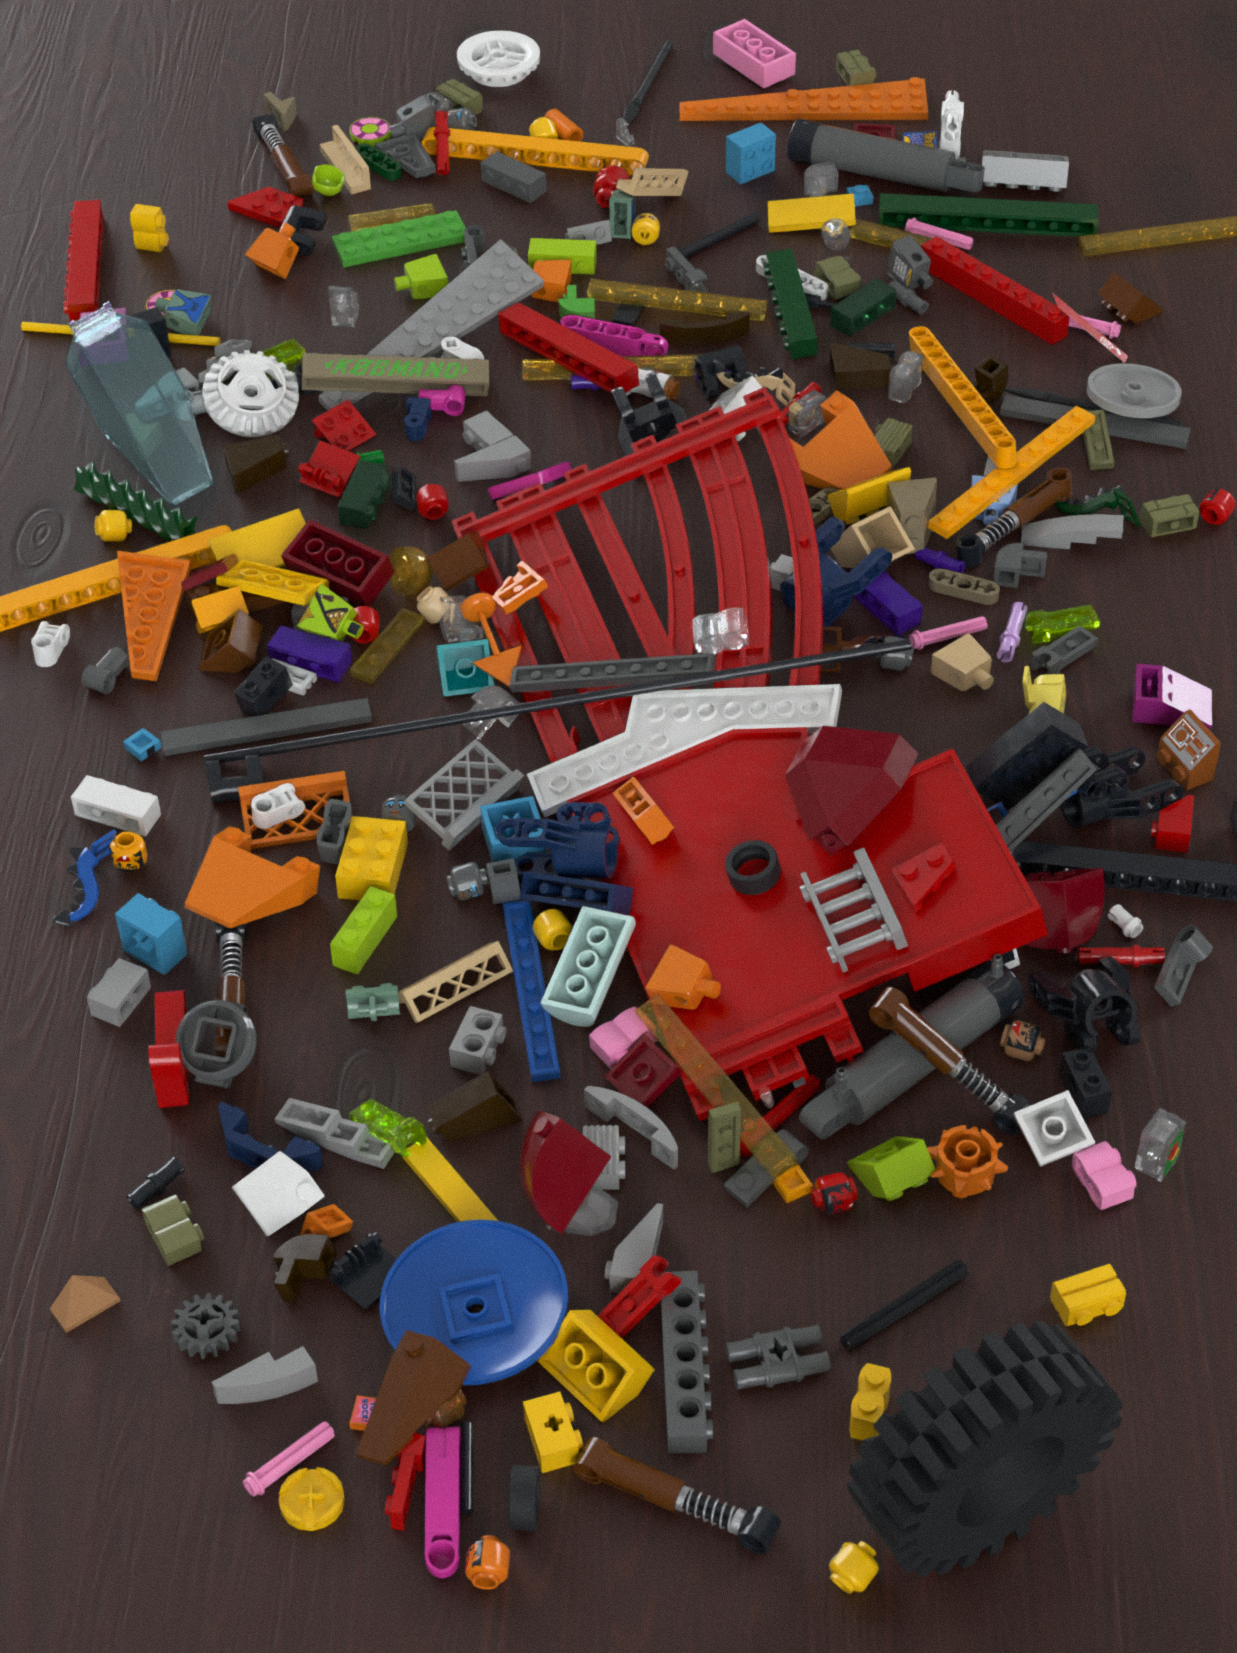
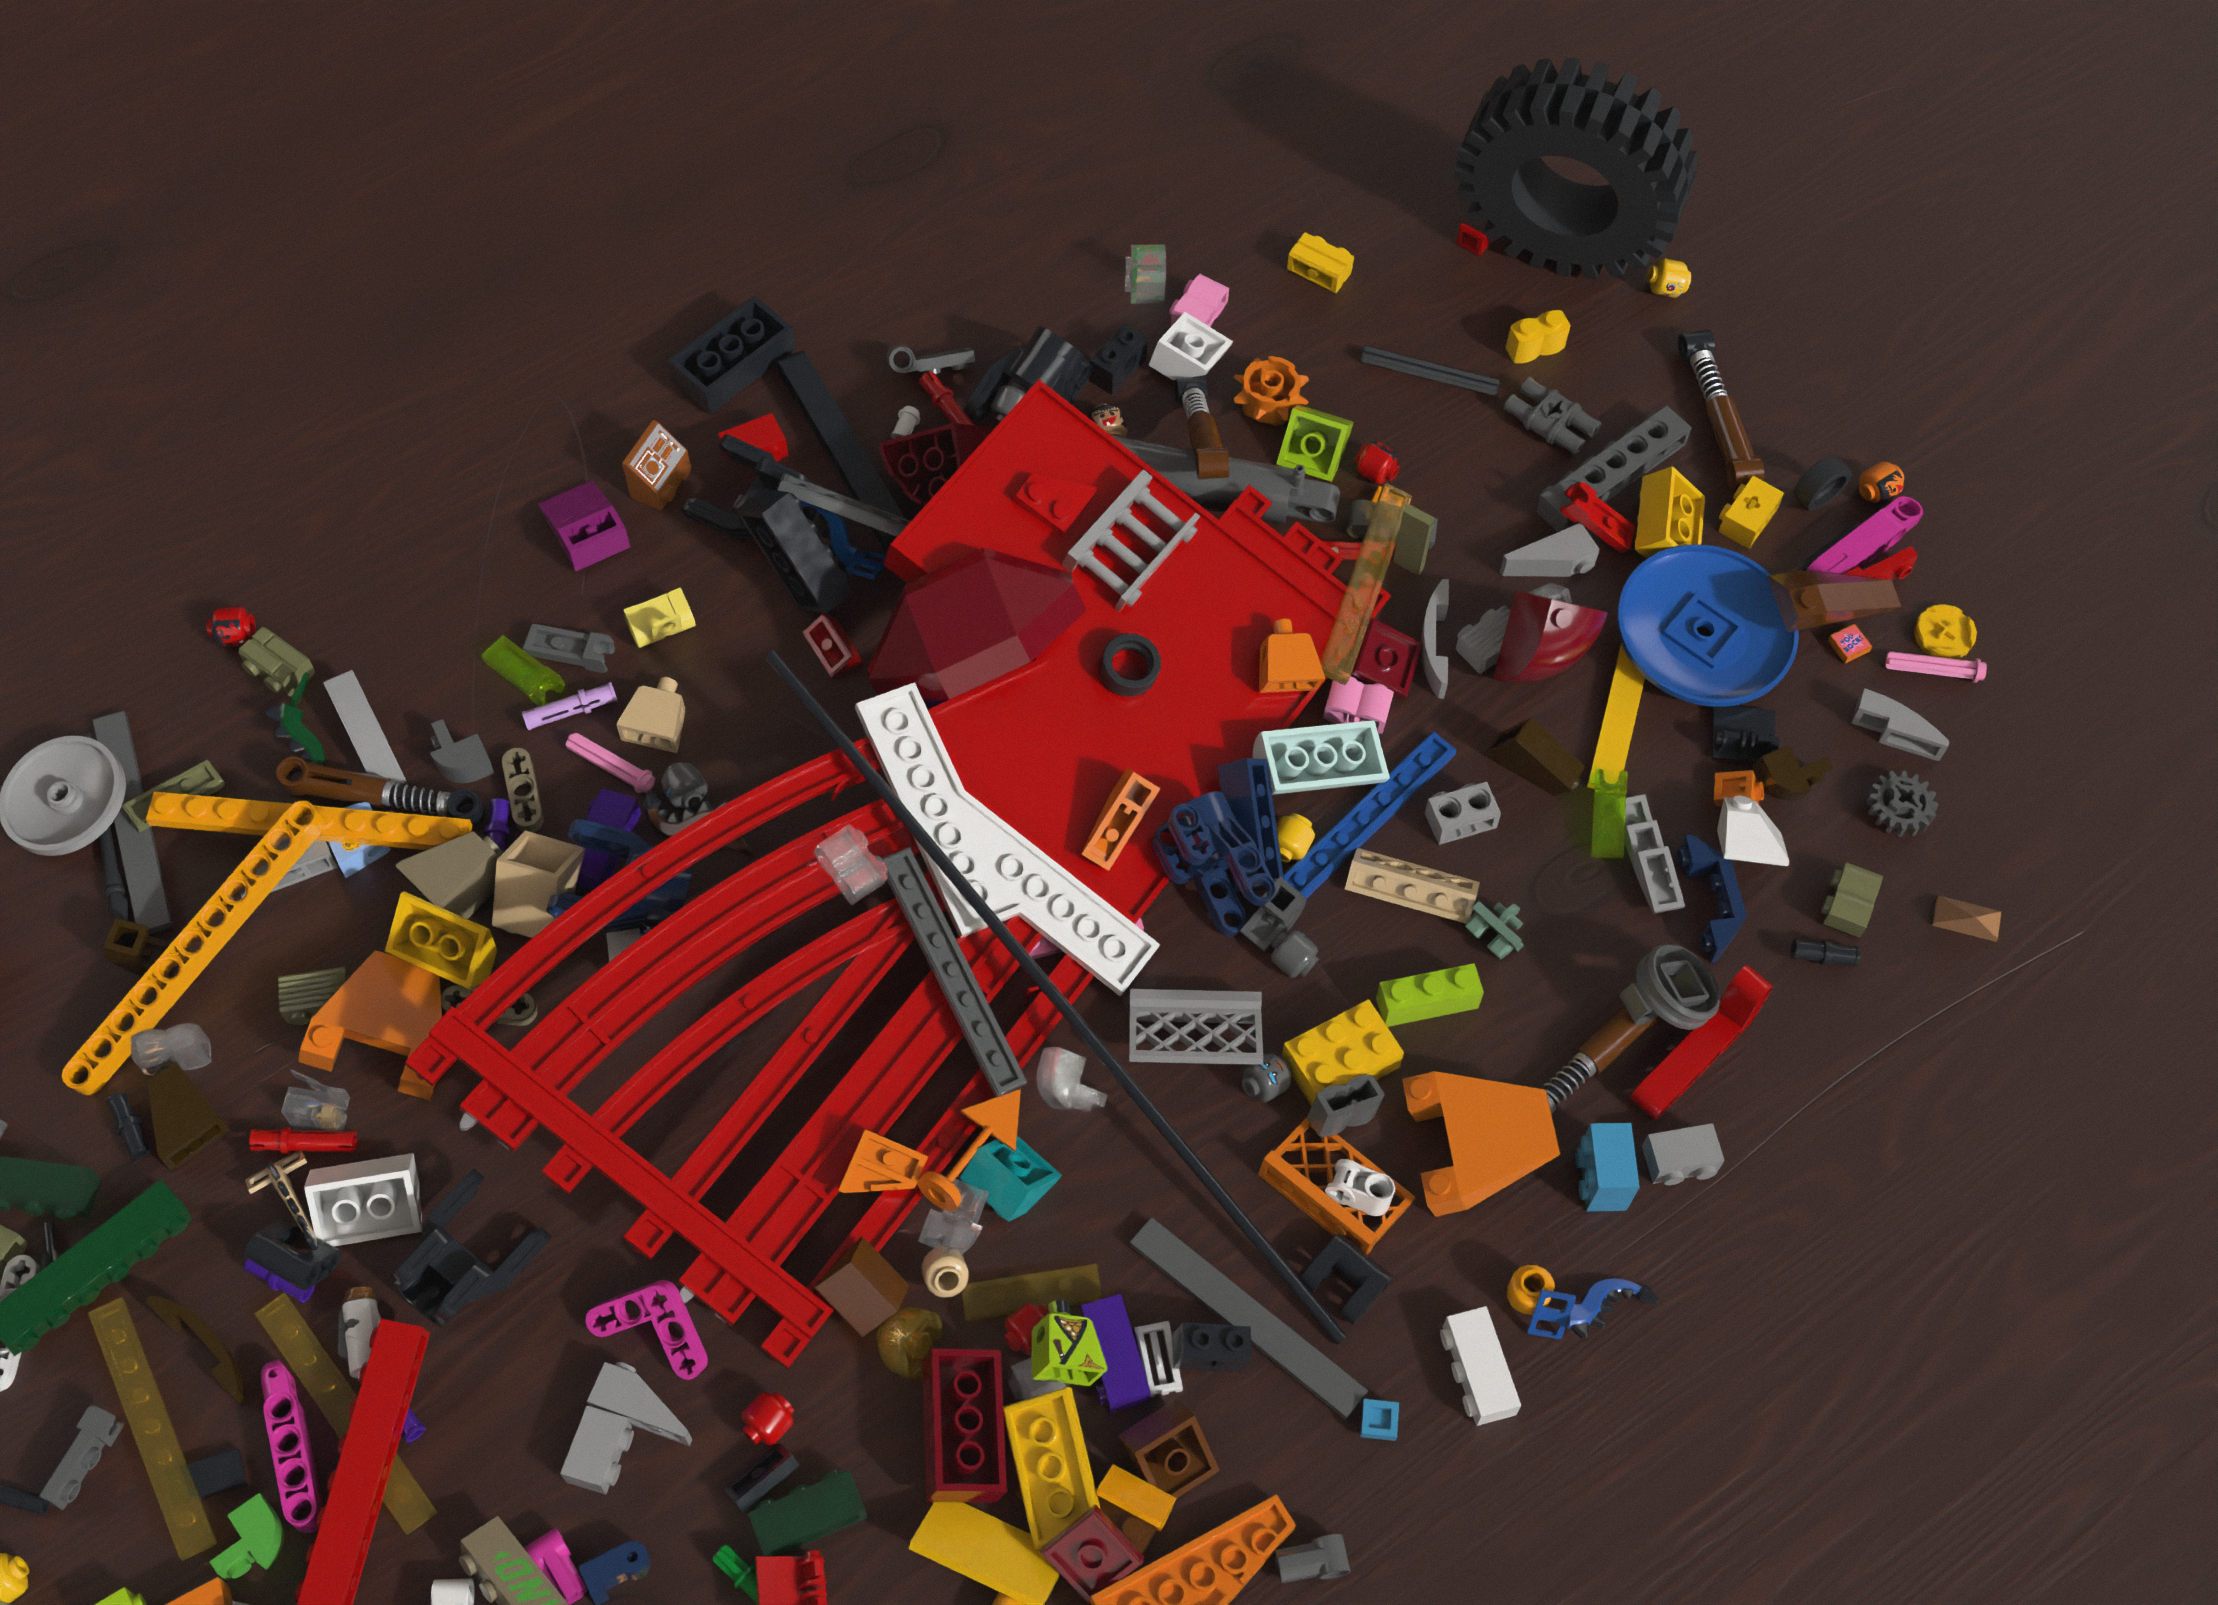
camera: 130 degrees left, 15 degrees up
(496, 812) = (1206, 949): dark azure brick -> none

